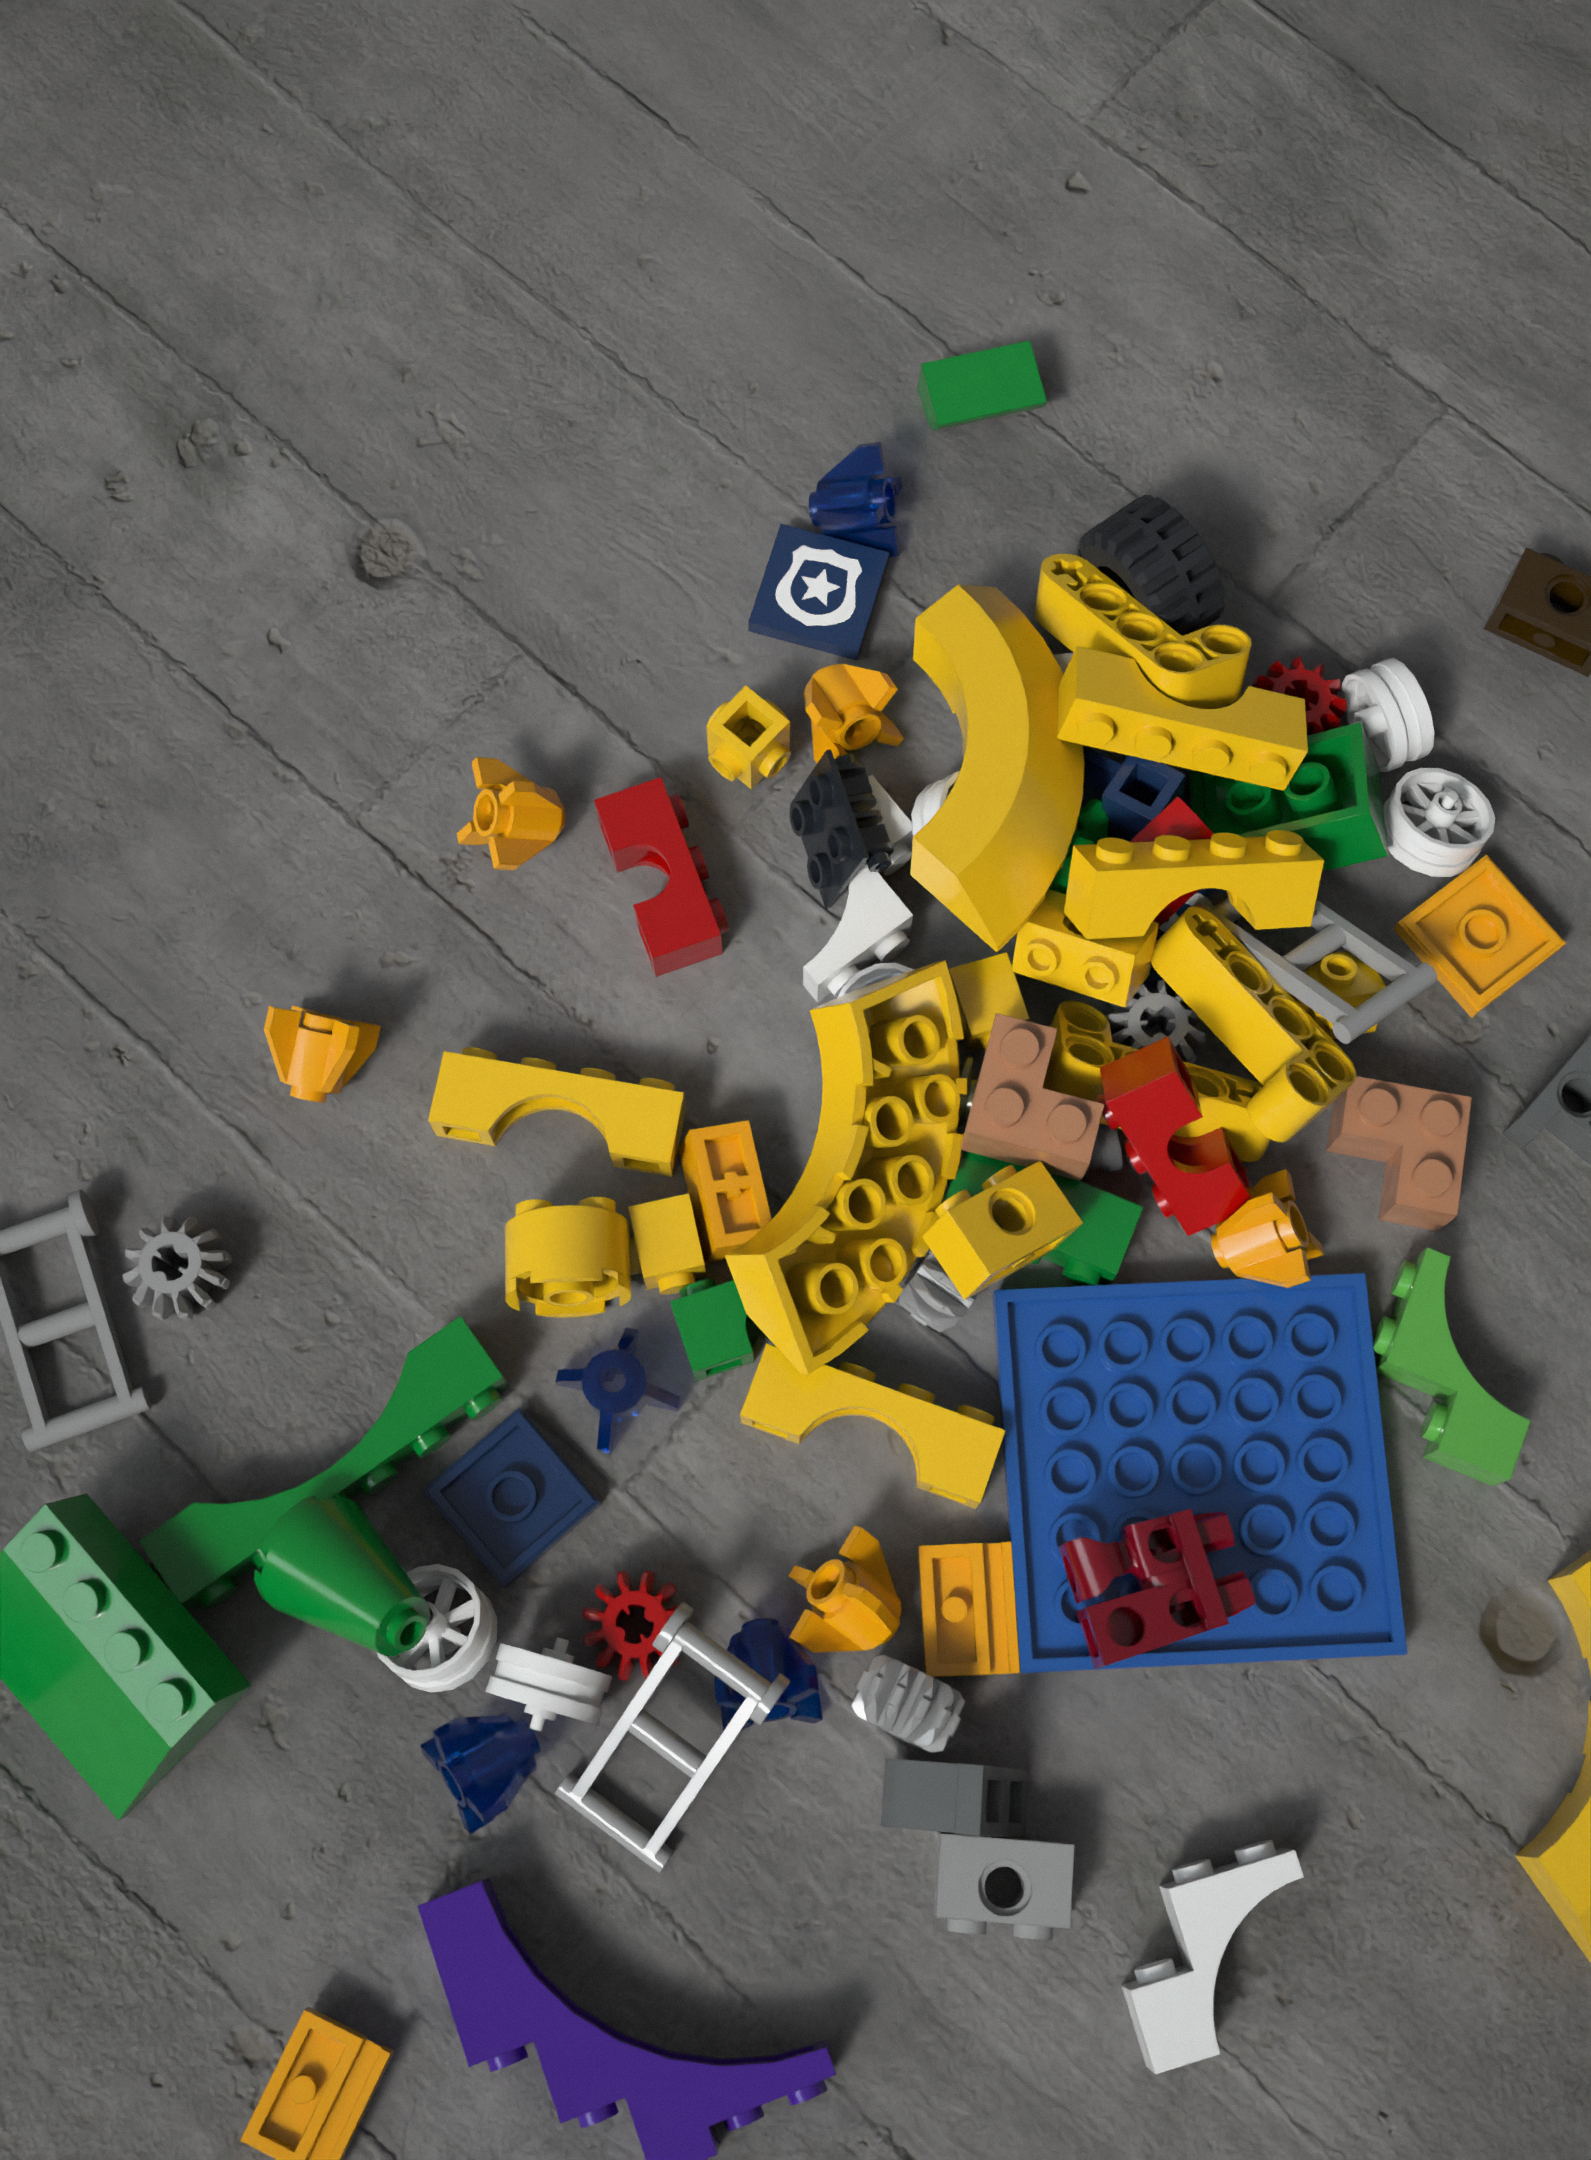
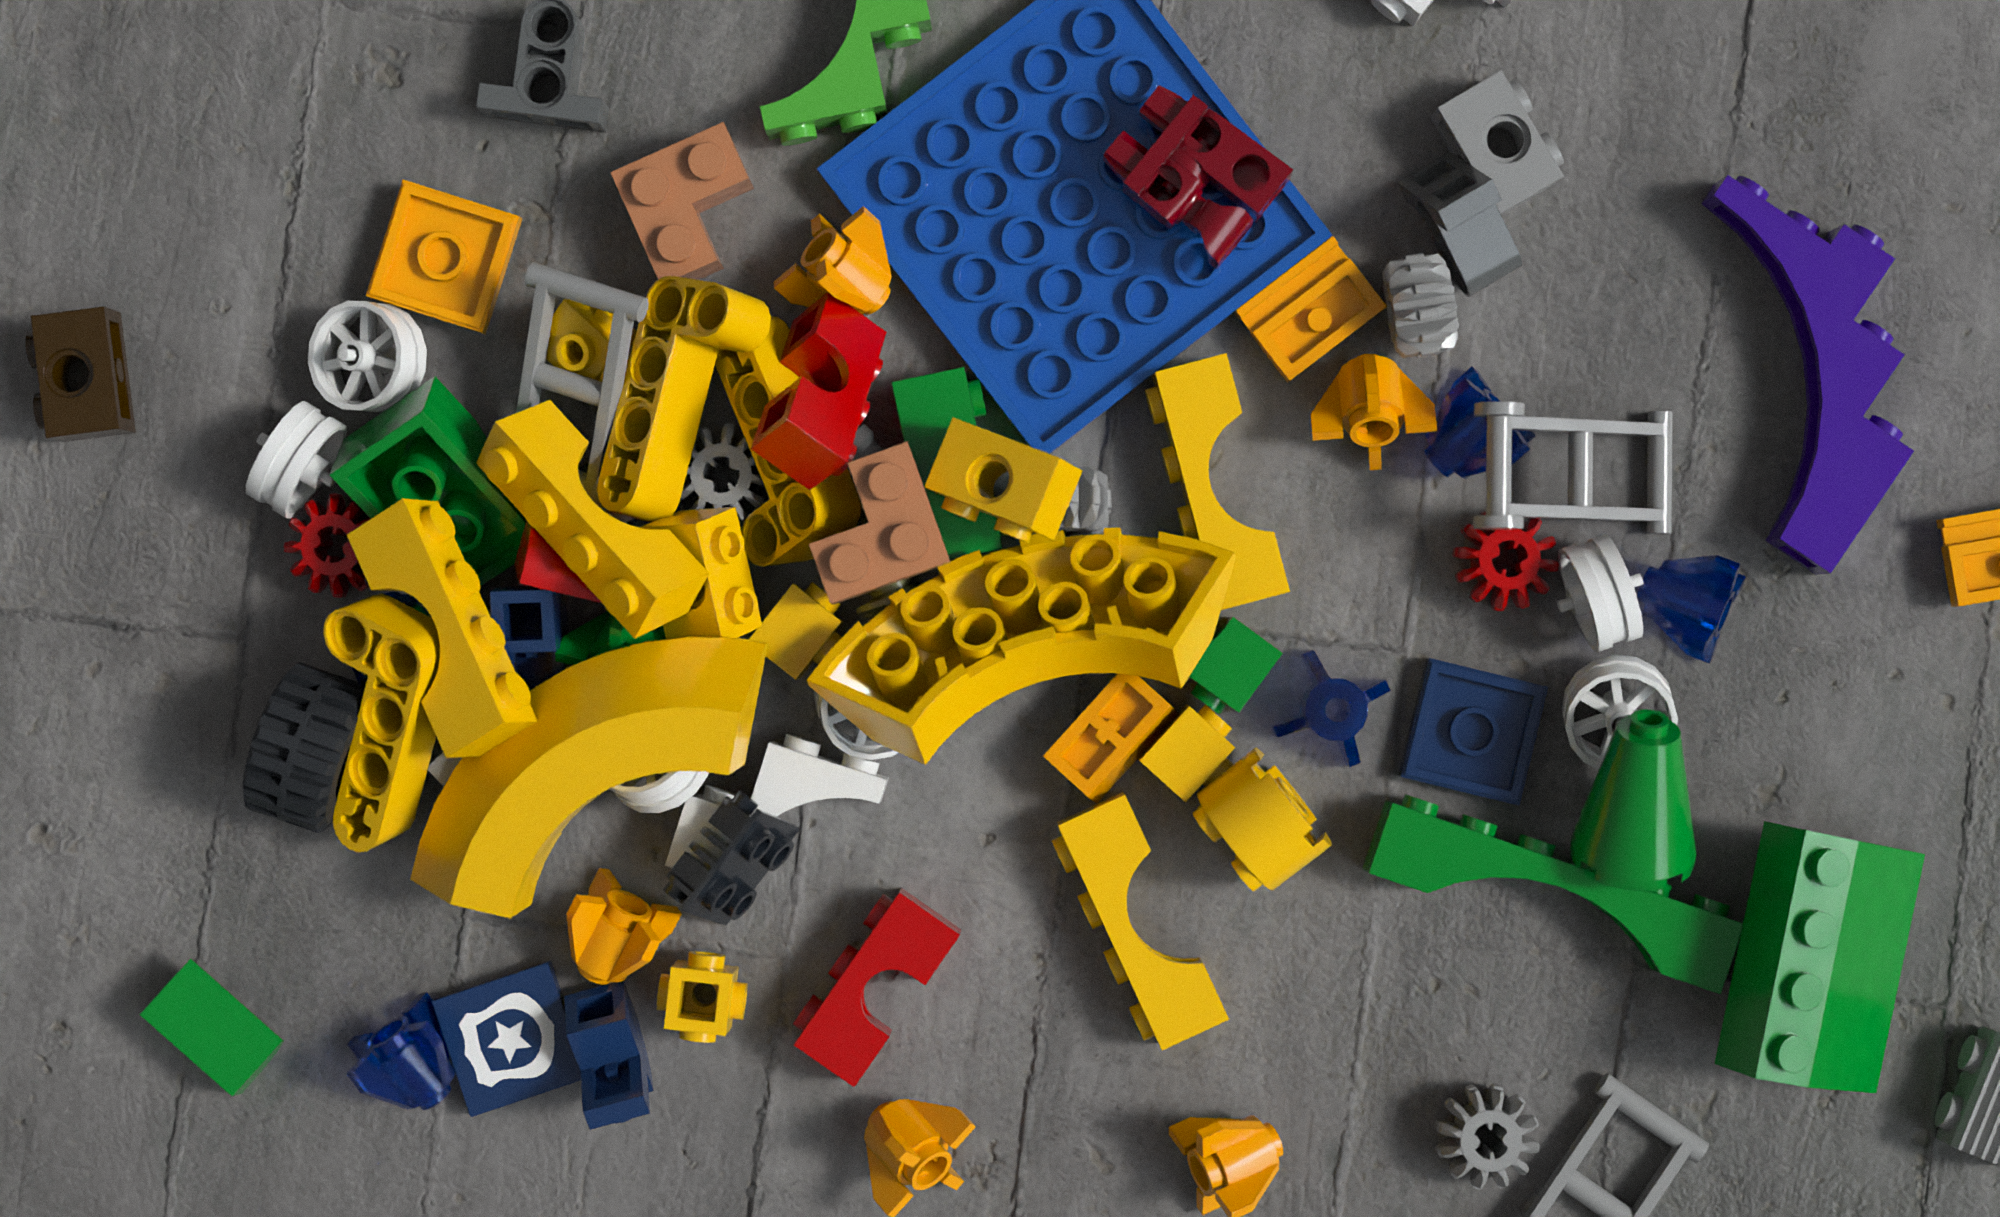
camera: 125 degrees left, 15 degrees up
(752, 649) = (609, 1054): none -> dark blue brick

